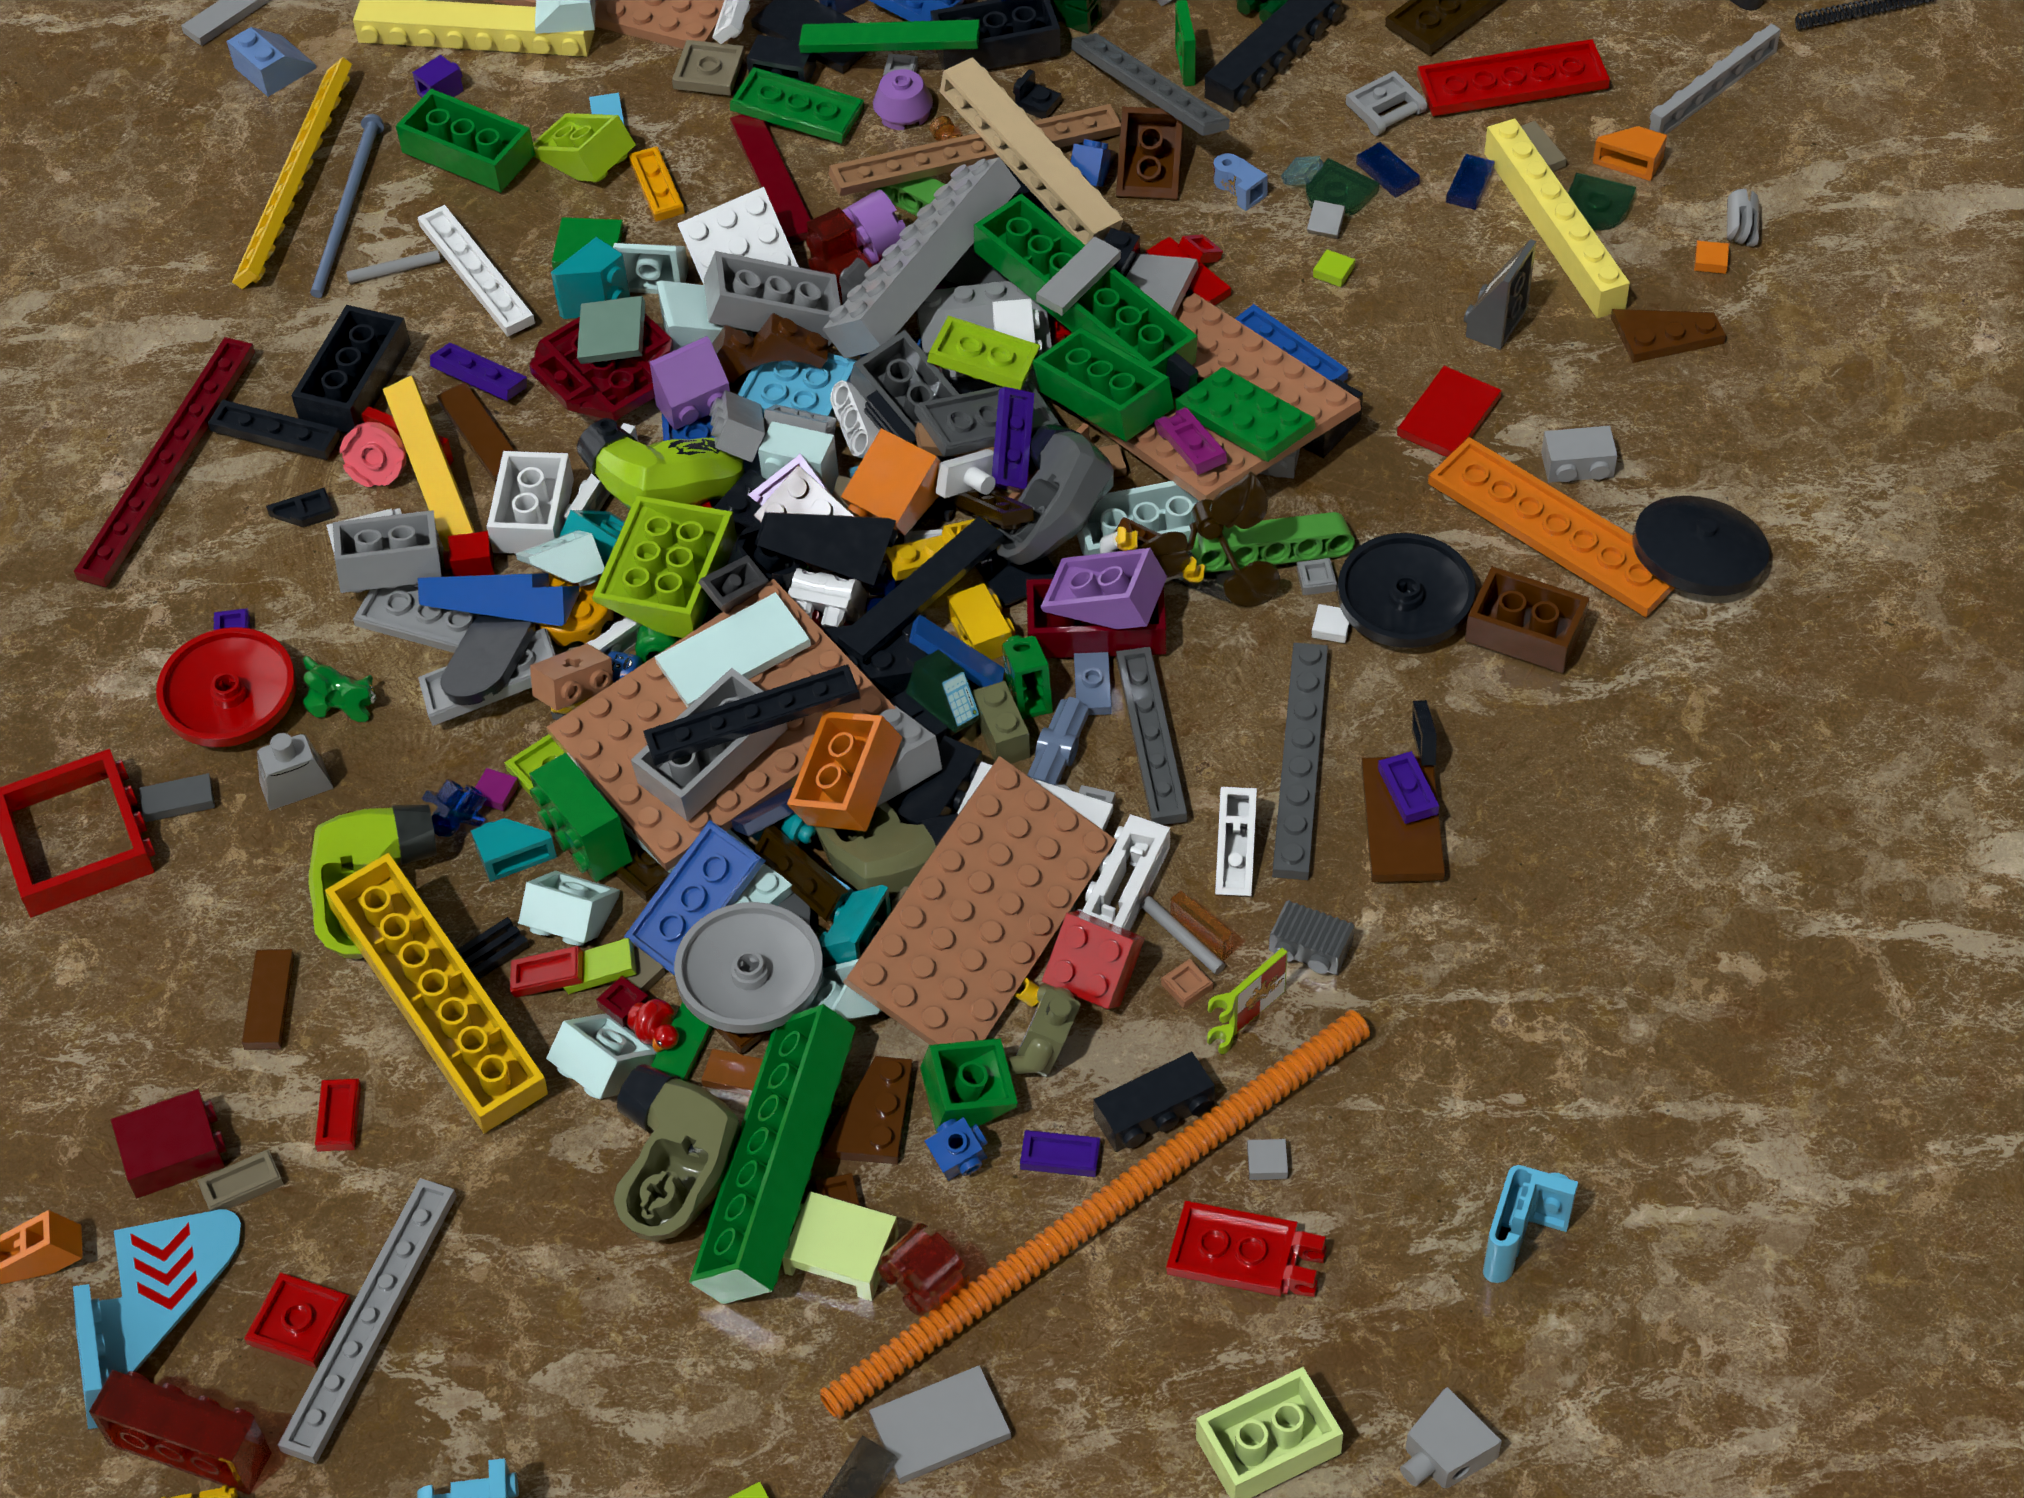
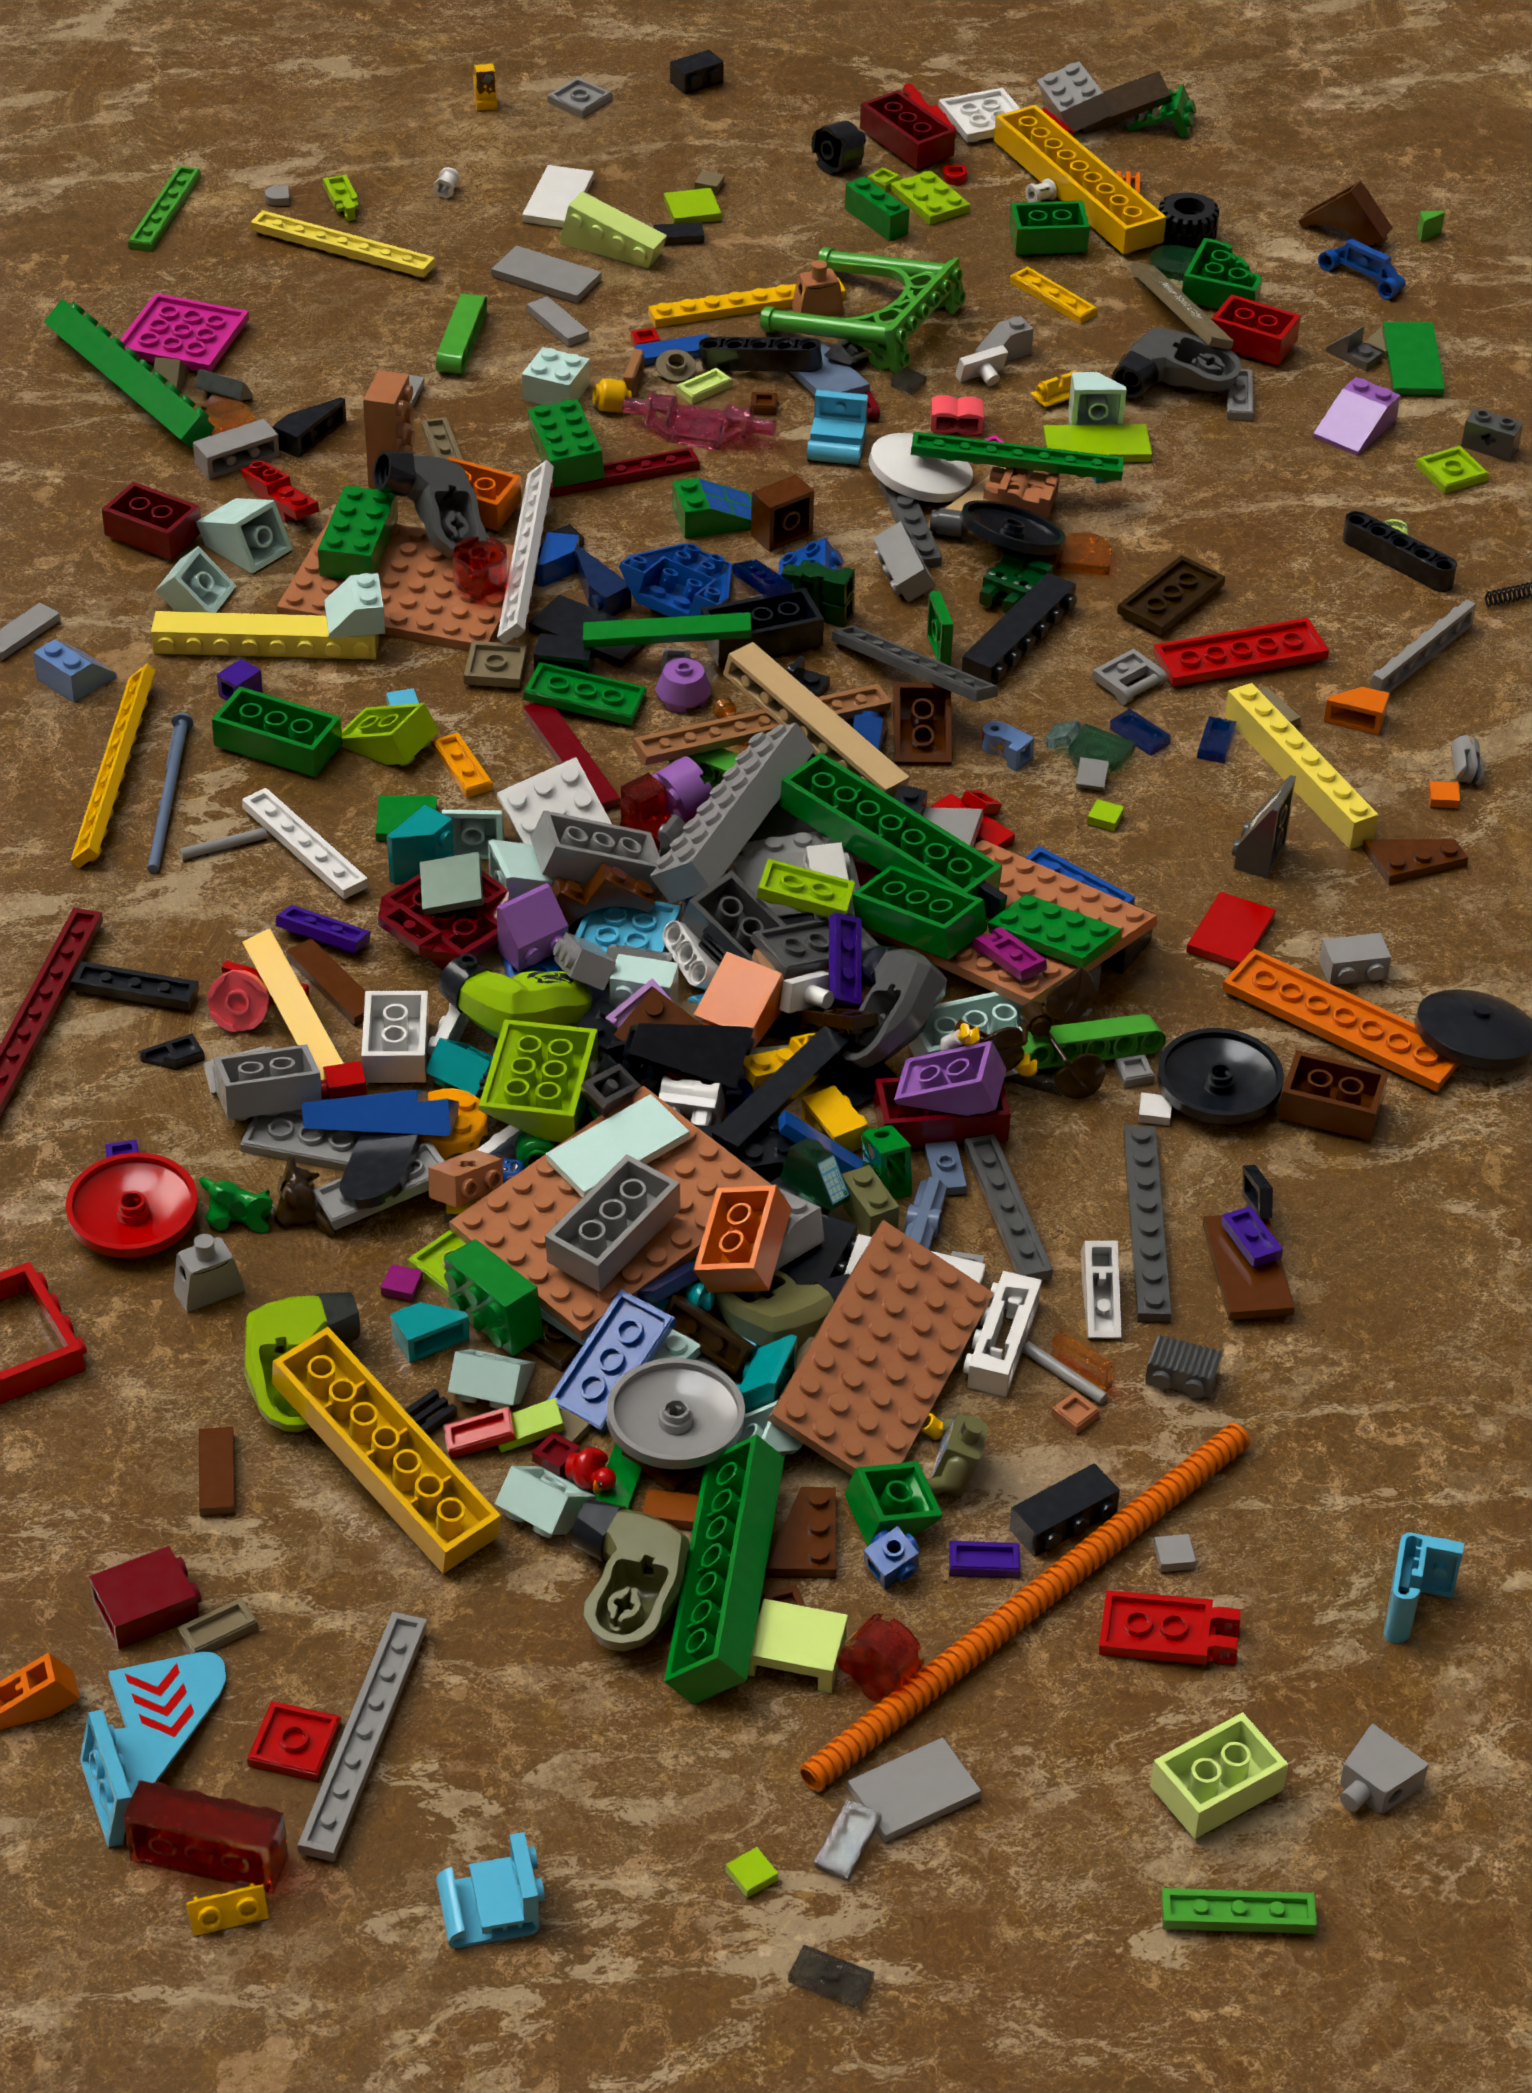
camera: 10 degrees left, 10 degrees down
(177, 797) = (97, 1304): dark grey tile -> none
(338, 1115) = (301, 1566): red tile -> none
(351, 368) = (203, 928): black brick -> none
(400, 689) = (298, 1201): none -> dark brown animal
(455, 807) = (371, 1293): clear blue hips -> none
(567, 557) = (446, 1077): light aqua slope -> none
(751, 714) = (652, 1191): black tile -> none
(1078, 275) = (886, 818): light grey tile -> none
(1093, 959) = (992, 1390): red brick -> none
(1248, 999) = (1138, 1417): flag -> none
(1601, 200) = (1342, 751): clear green tile -> none

